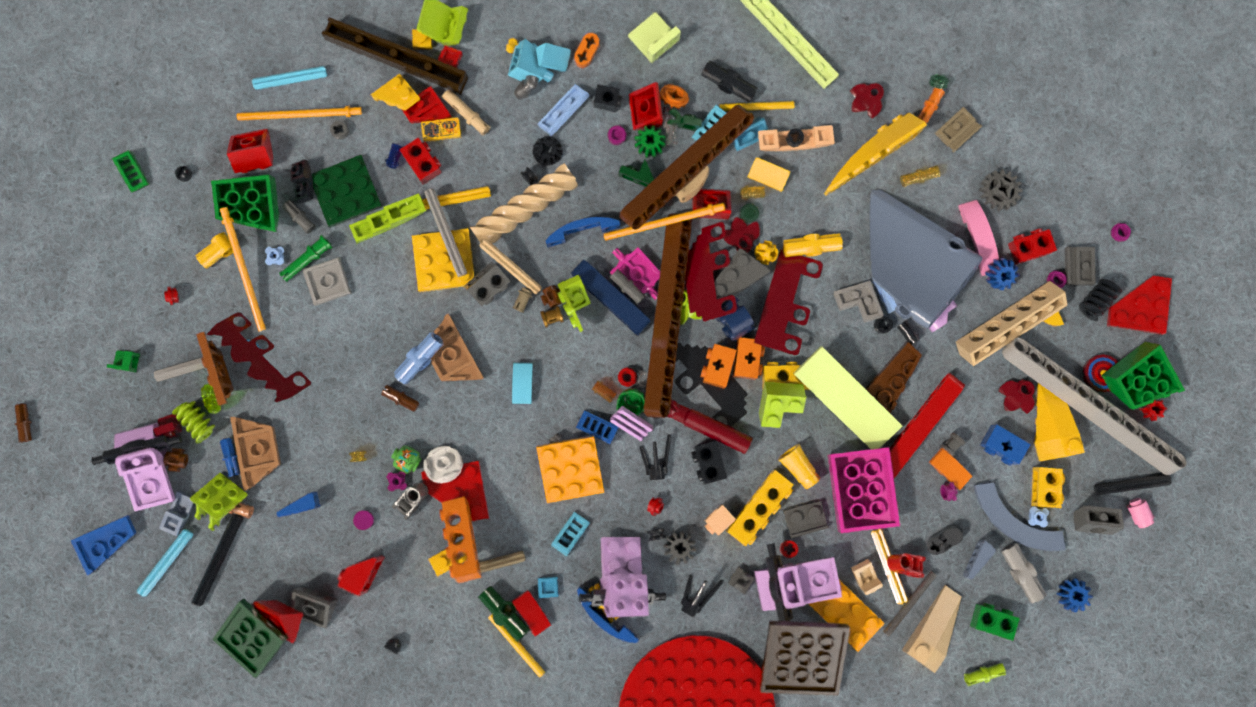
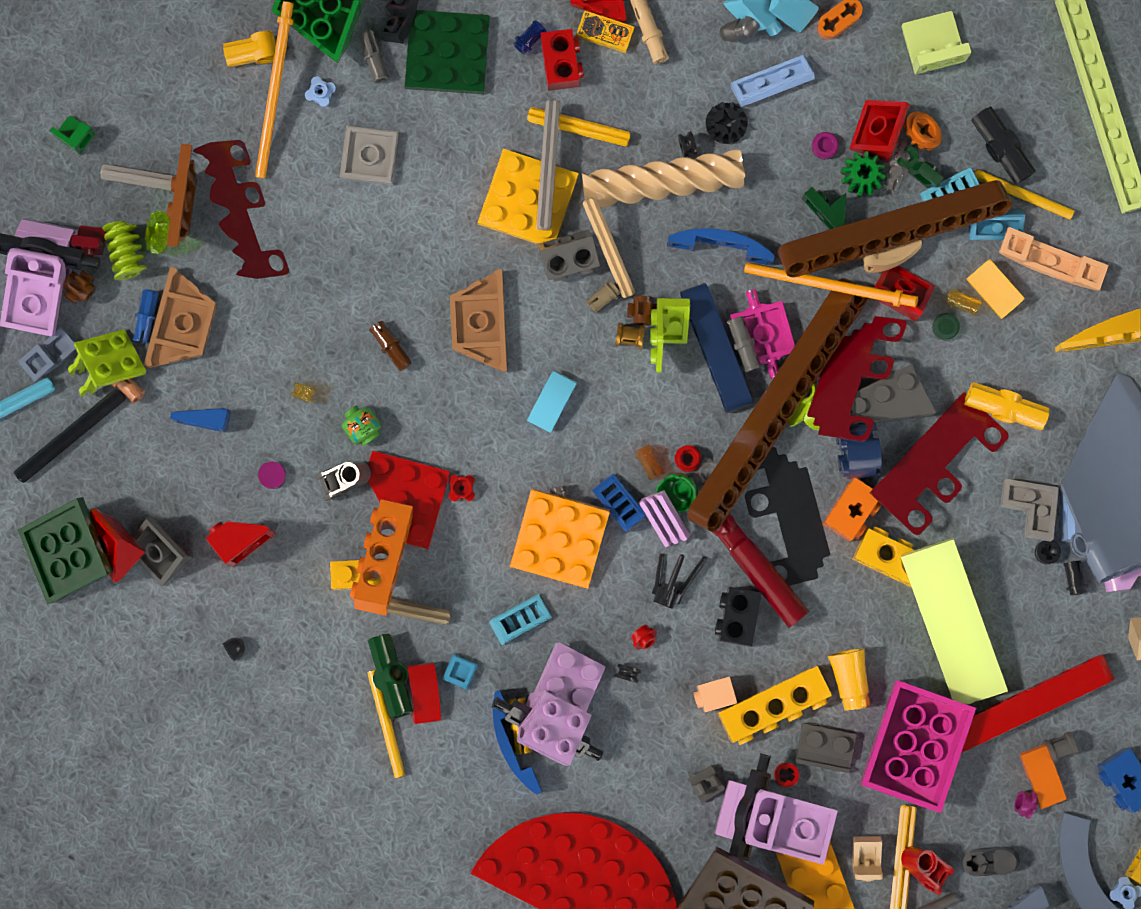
camera: 30 degrees right, 0 degrees up
(171, 295) = (169, 80): red plate -> none
(313, 252) = (369, 110): green pin -> none
(388, 218) = (484, 112): lime slope -> none
(400, 477) = (340, 453): magenta plate -> none
(418, 358) = (438, 306): medium blue piece -> none
(443, 464) = (404, 454): white tile -> none
(486, 467) = (467, 493): none -> red plate
(603, 91) = (835, 81): black brick -> none
(685, 543) = (640, 706): dark grey gear -> none
(691, 606) = (628, 783): black plant -> none
(725, 357) = (825, 494): orange brick -> none
(741, 232) = (923, 346): dark red plate -> none
(766, 252) = (942, 387): yellow gear -> none
(780, 398) = (867, 579): lime brick -> none
(800, 136) = (1060, 260): black bush -> none
(892, 378) = (1028, 624): reddish brown wing -> none

